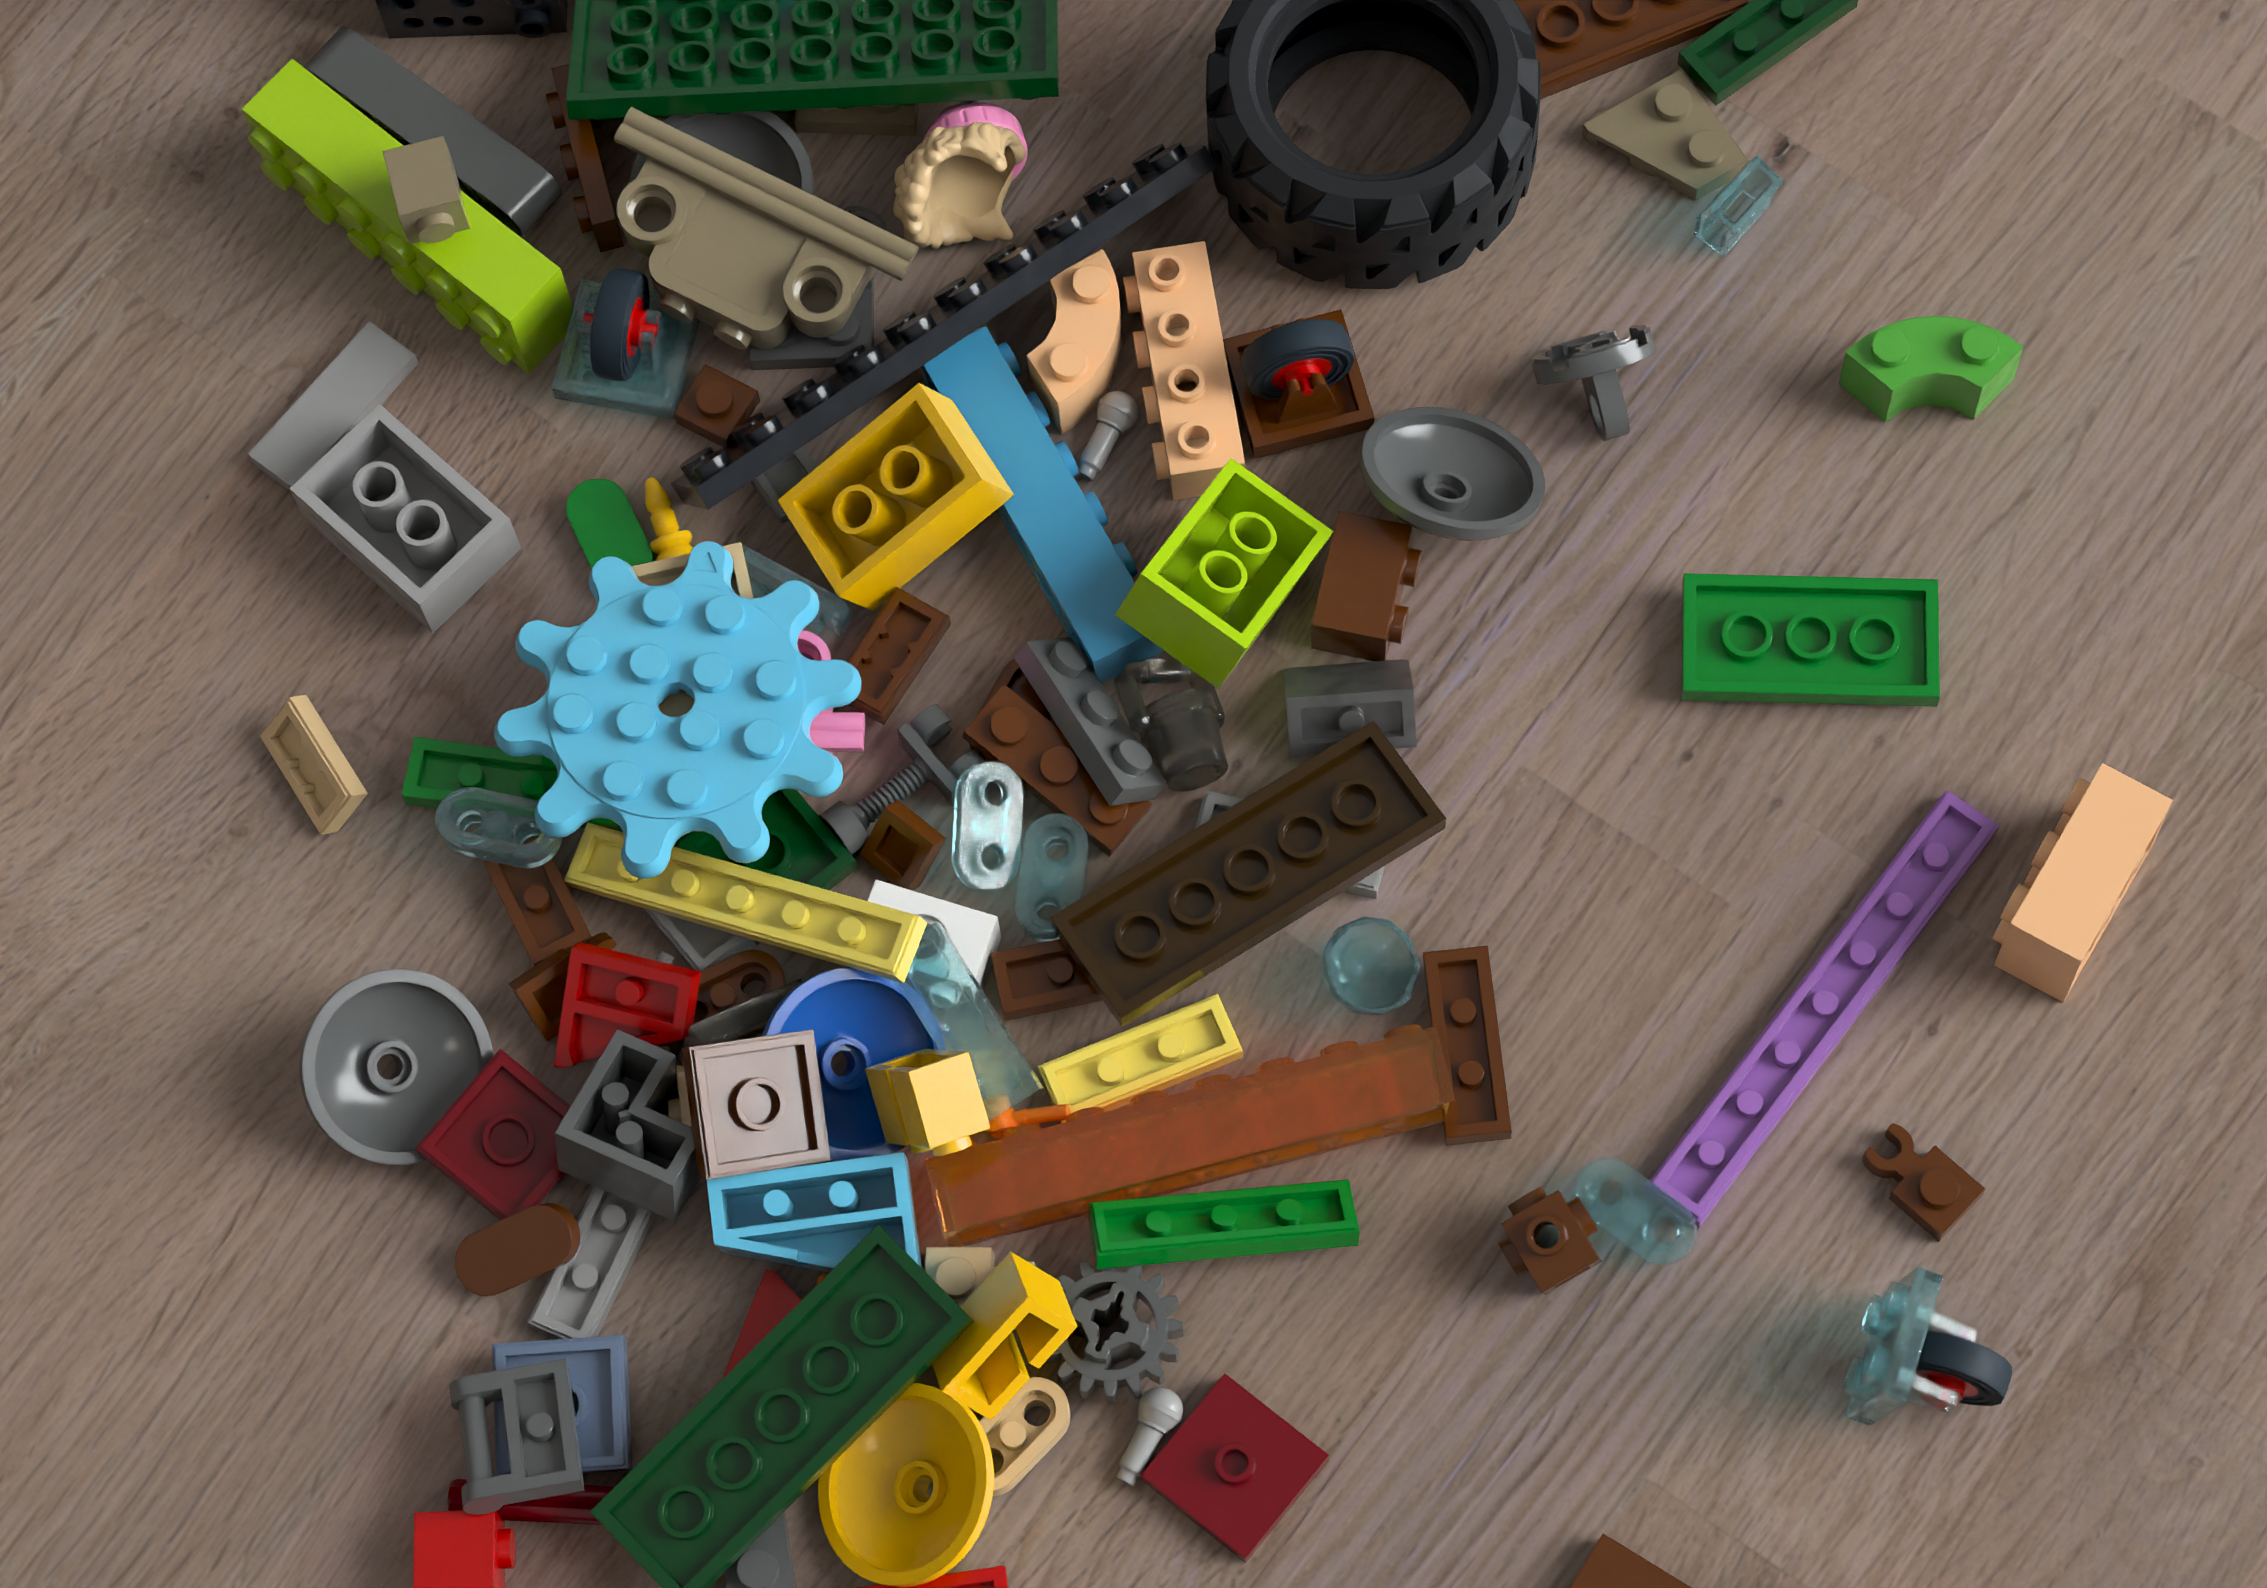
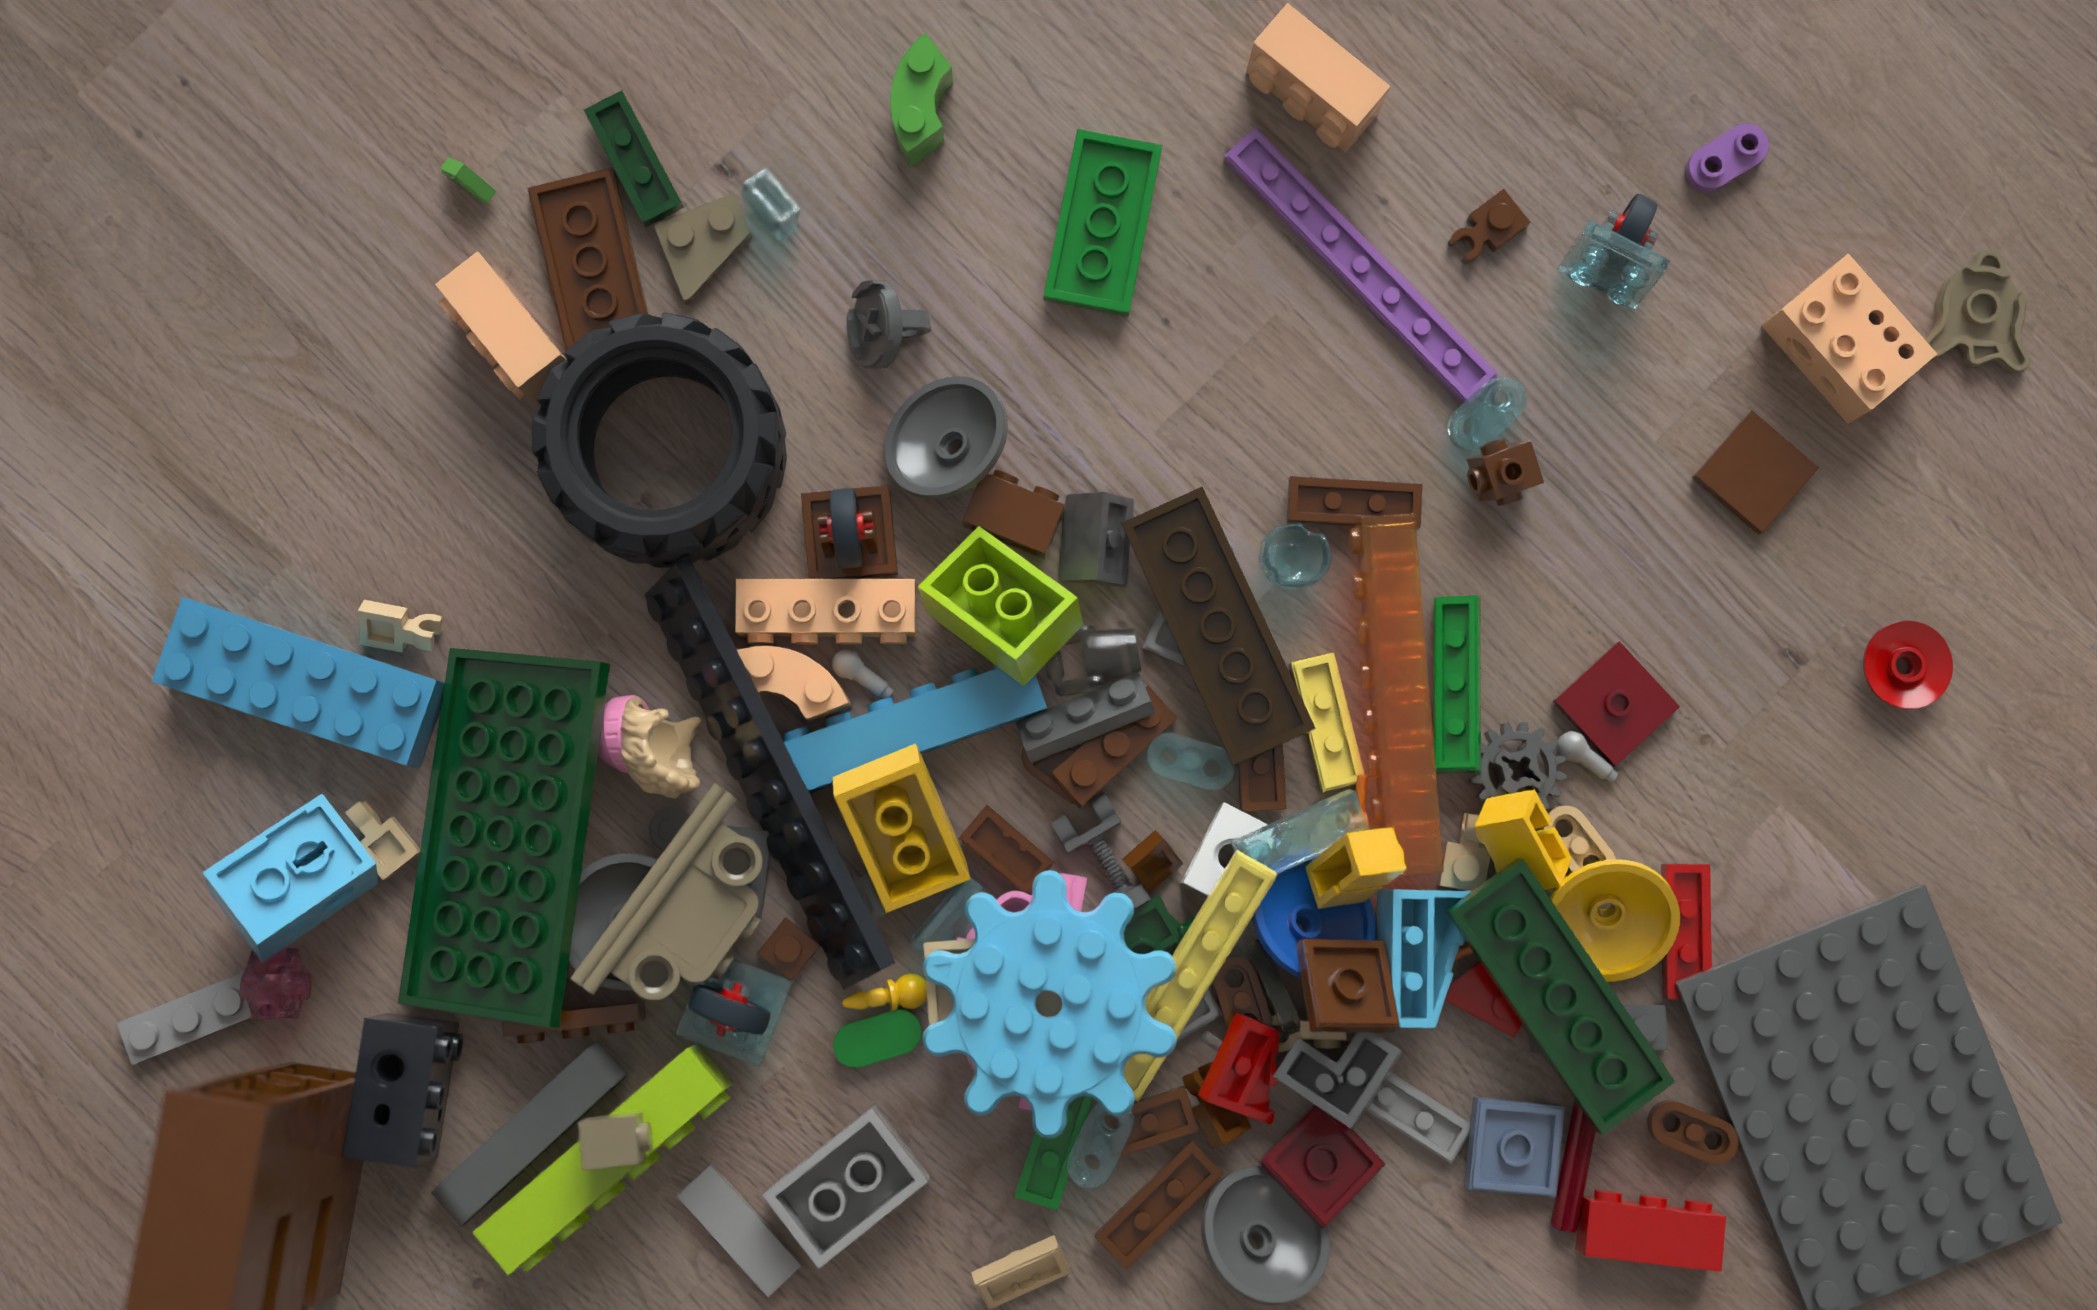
camera: 90 degrees left, 15 degrees up
(425, 930) = (1158, 1204): none -> reddish brown plate
(517, 1249) = (1403, 1164): reddish brown tile -> none
(538, 1431) = (1545, 1163): dark grey plate -> none
(984, 824) = (1151, 800): clear light blue plate -> none
(2105, 1521) = (1728, 156): none -> medium lavender plate

